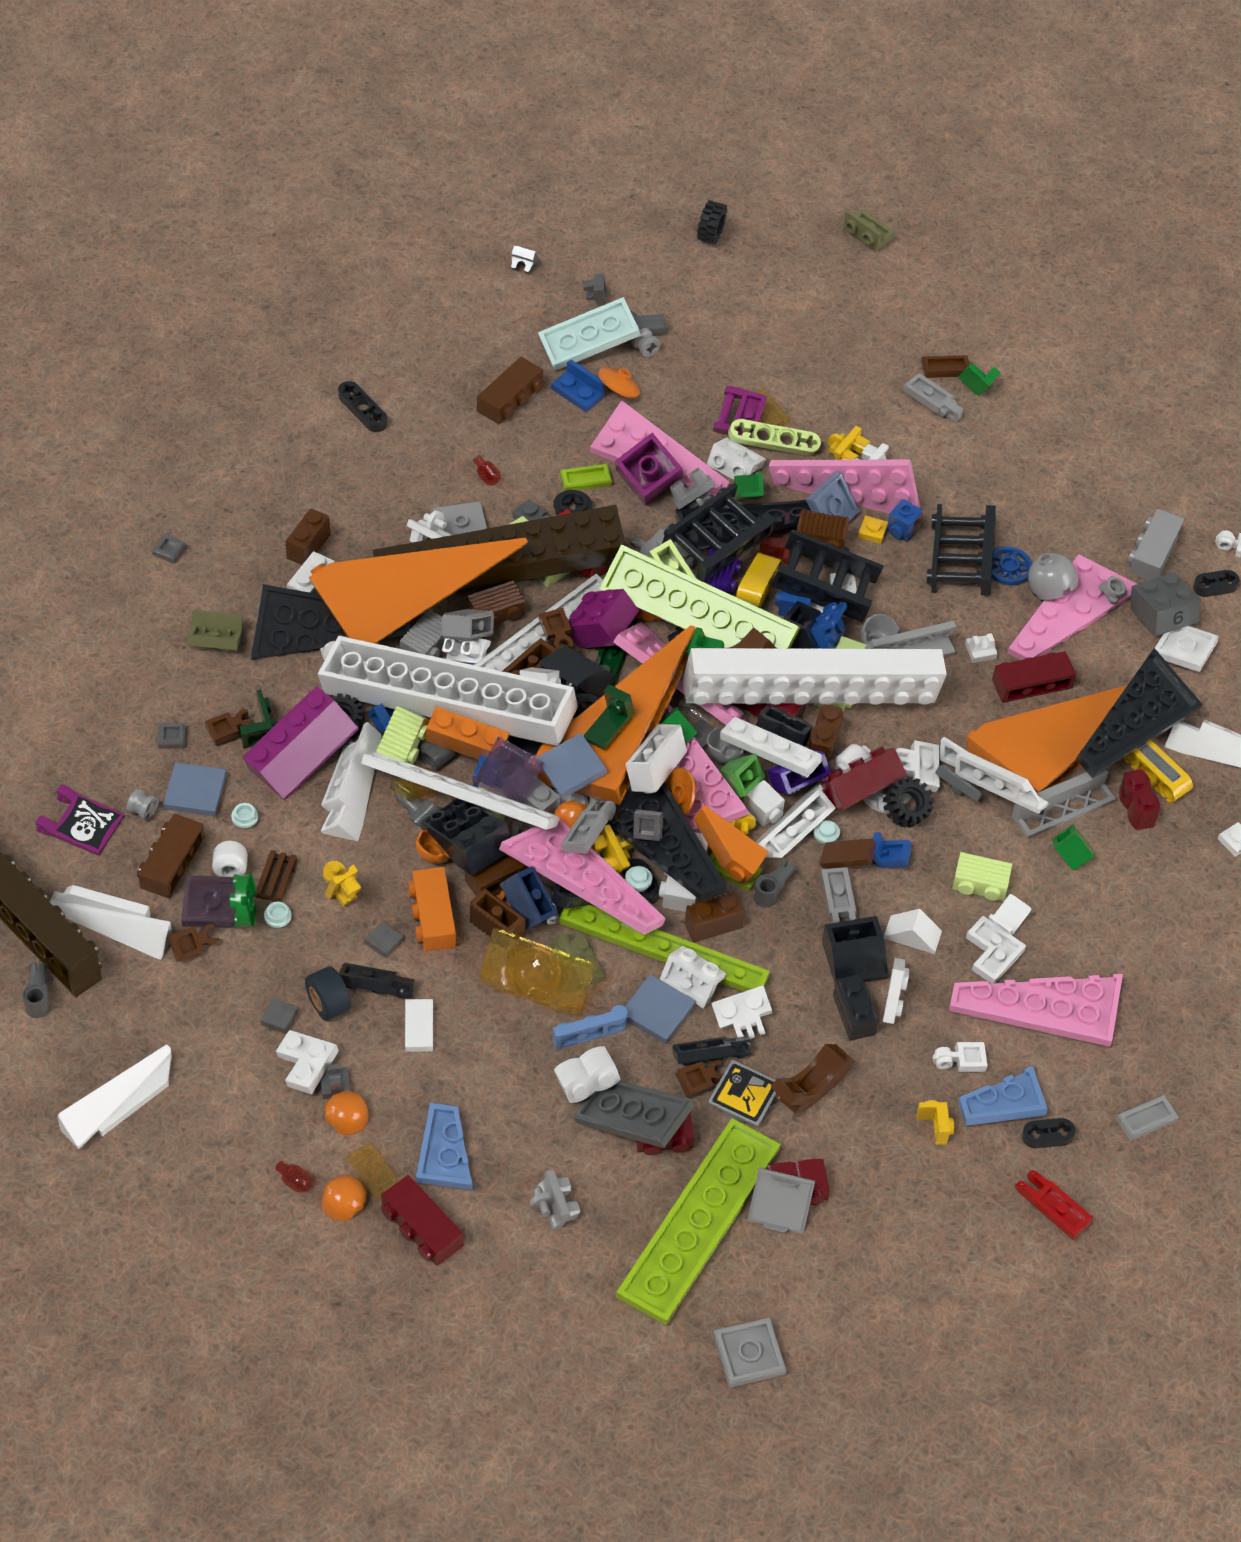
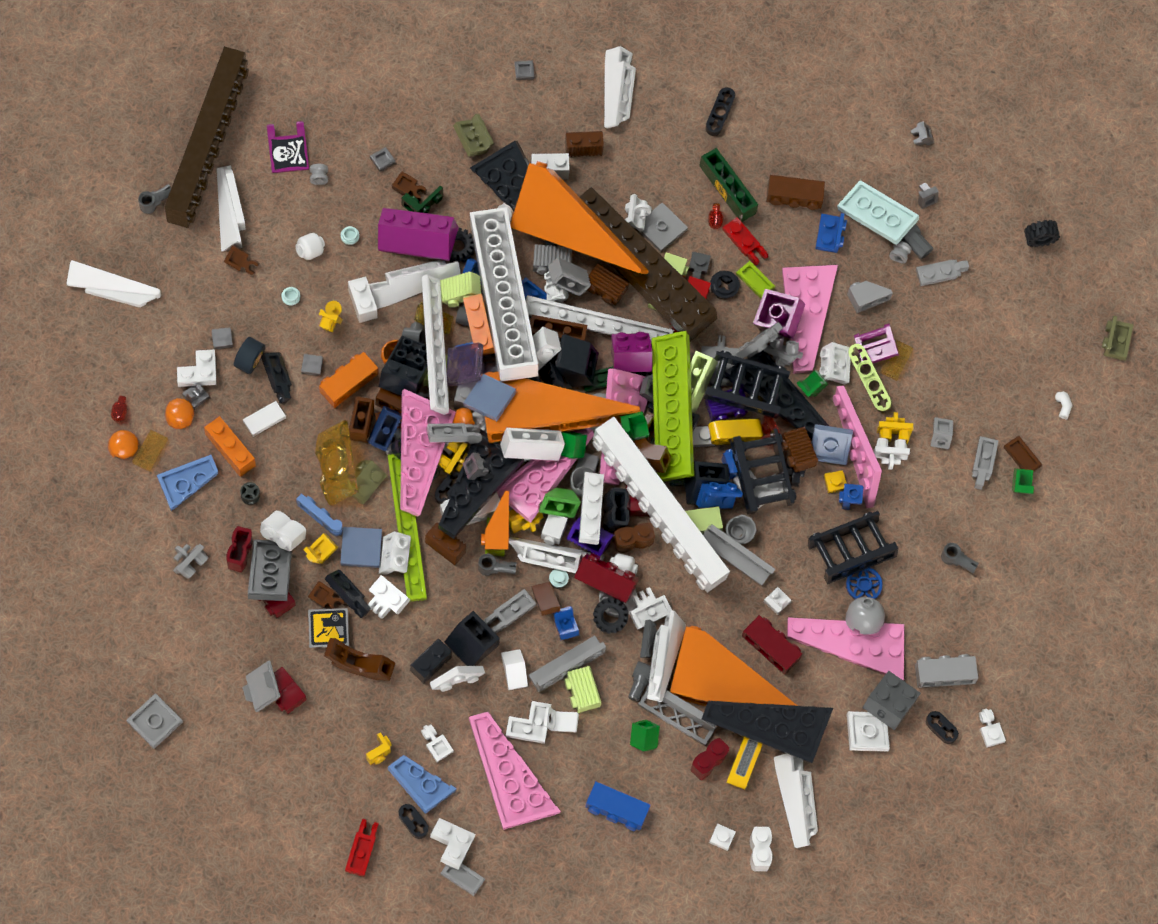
camera: 55 degrees right, 15 degrees up
(170, 855) = (292, 212): reddish brown brick -> none
(195, 789) = (352, 196): sand blue tile -> none
(208, 902) = (275, 253): clear purple plate -> none
(243, 900) = (281, 271): green plate -> none
(258, 475) = (618, 86): none -> white wedge
(281, 858) = (301, 276): reddish brown tile -> none
(340, 841) = (362, 299): none -> white brick
(421, 1220) = (130, 494): dark red brick -> none
(434, 1076) = (230, 446): none -> orange brick
(460, 438) = (728, 185): none -> dark green brick
(510, 1081) = (248, 489): none -> pearl dark grey wheel
(534, 462) = (744, 240): none -> red hinge
(556, 626) = (604, 329): reddish brown plate -> none
(583, 1135) = (241, 546): none -> dark red brick
(613, 718) = (532, 400): dark green bracket -> none
(619, 381) = (850, 254): orange dish -> none
(635, 1049) = (321, 549): none -> yellow bracket
(639, 878) = (444, 484): light aqua plate -> none
(655, 625) = (647, 387): none -> dark grey plate
(673, 494) = (759, 342): none -> light grey plate
(675, 393) = (867, 295): none -> light grey slope
(682, 787) = (521, 473): orange dish -> none
(690, 325) = (941, 271): none -> light grey hinge
(697, 1222) = (225, 647): lime plate -> none
(879, 412) = (942, 433): none -> light grey bracket
(913, 304) = (1064, 398): none -> white arm
(940, 876) = (567, 662): none -> light grey fence
(999, 812) = (641, 679): none -> dark grey pin
(1027, 471) = (959, 558): none -> dark grey pin
(1100, 1098) = (456, 838): none -> white plate
(1113, 588) = (887, 660): light grey plate -> none
(1147, 916) = (617, 806): none -> blue brick

